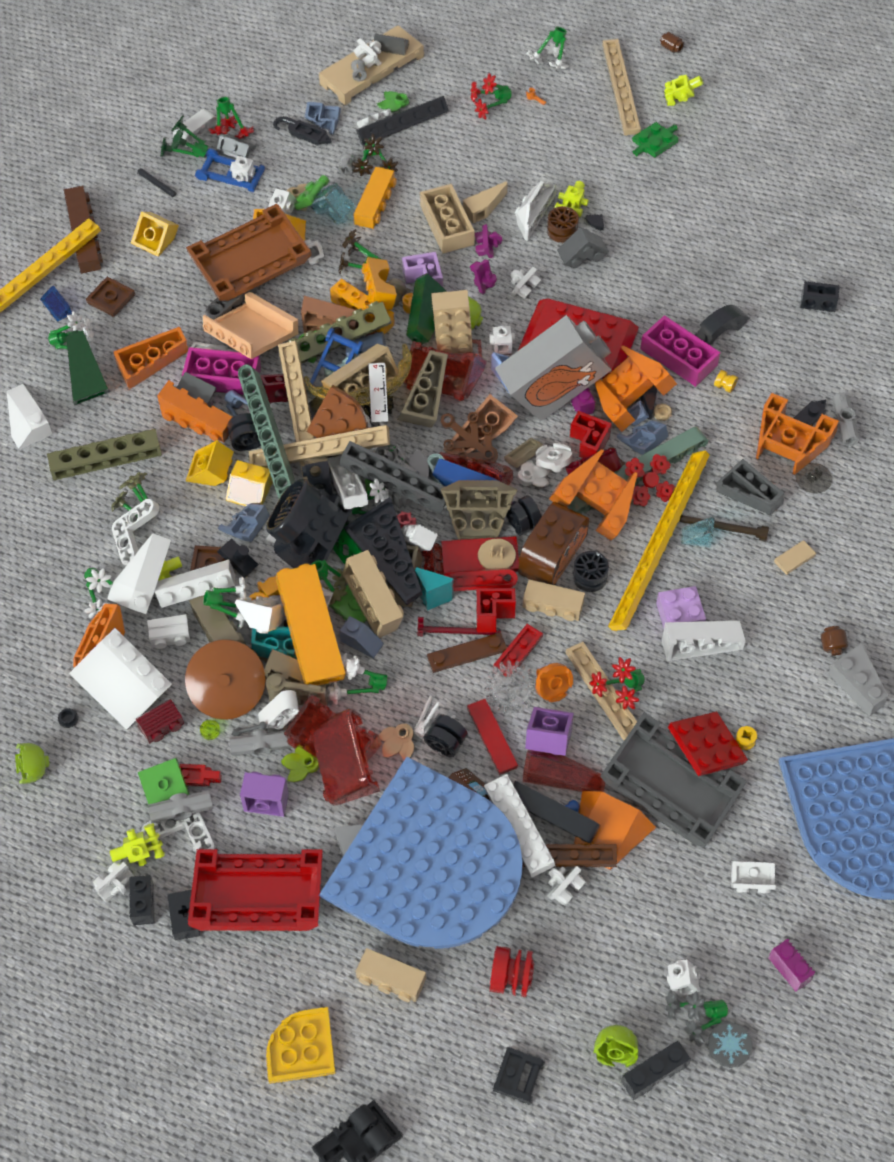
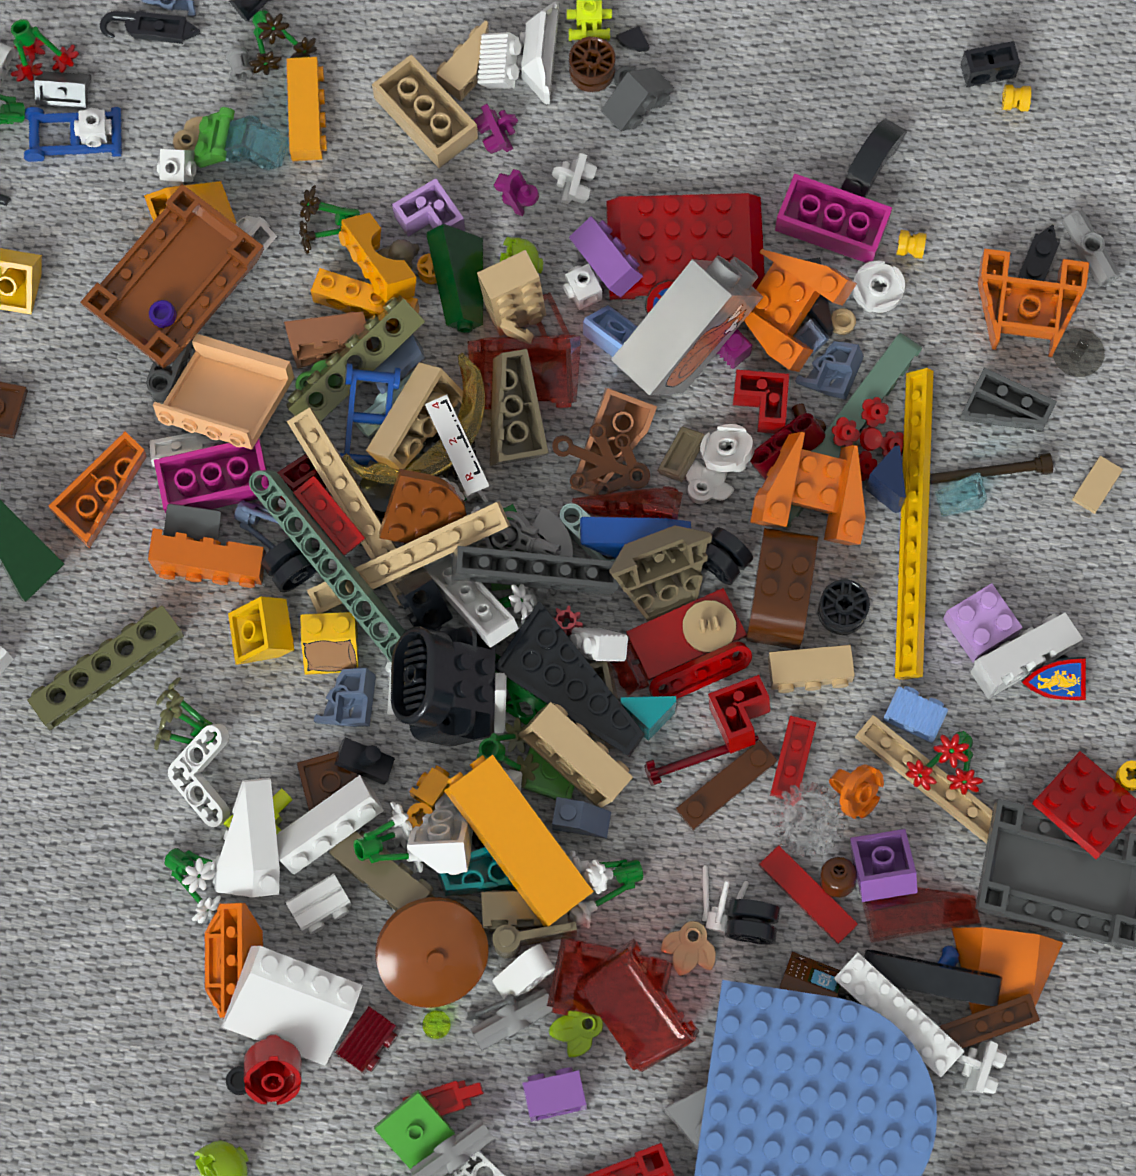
camera: 20 degrees left, 15 degrees up
(89, 713) = (272, 1071): none -> red brick
(233, 270) = (162, 313): none -> dark purple tile
(281, 409) = (329, 515): none -> red plate
(339, 549) = (500, 703): none -> white tile
(445, 346) = (517, 333): none -> tan tile
(504, 205) = (498, 60): none -> white brick
(515, 729) = (838, 877): none -> reddish brown head
(523, 323) = (606, 255): none -> medium lavender brick
(609, 648) = (915, 713): none -> light blue brick
(650, 503) = (887, 481): none -> dark blue slope
(692, 407) = (883, 274): none -> white plate
(719, 660) = (1059, 679): none -> shield
(830, 321) = (1016, 98): none -> yellow wheel

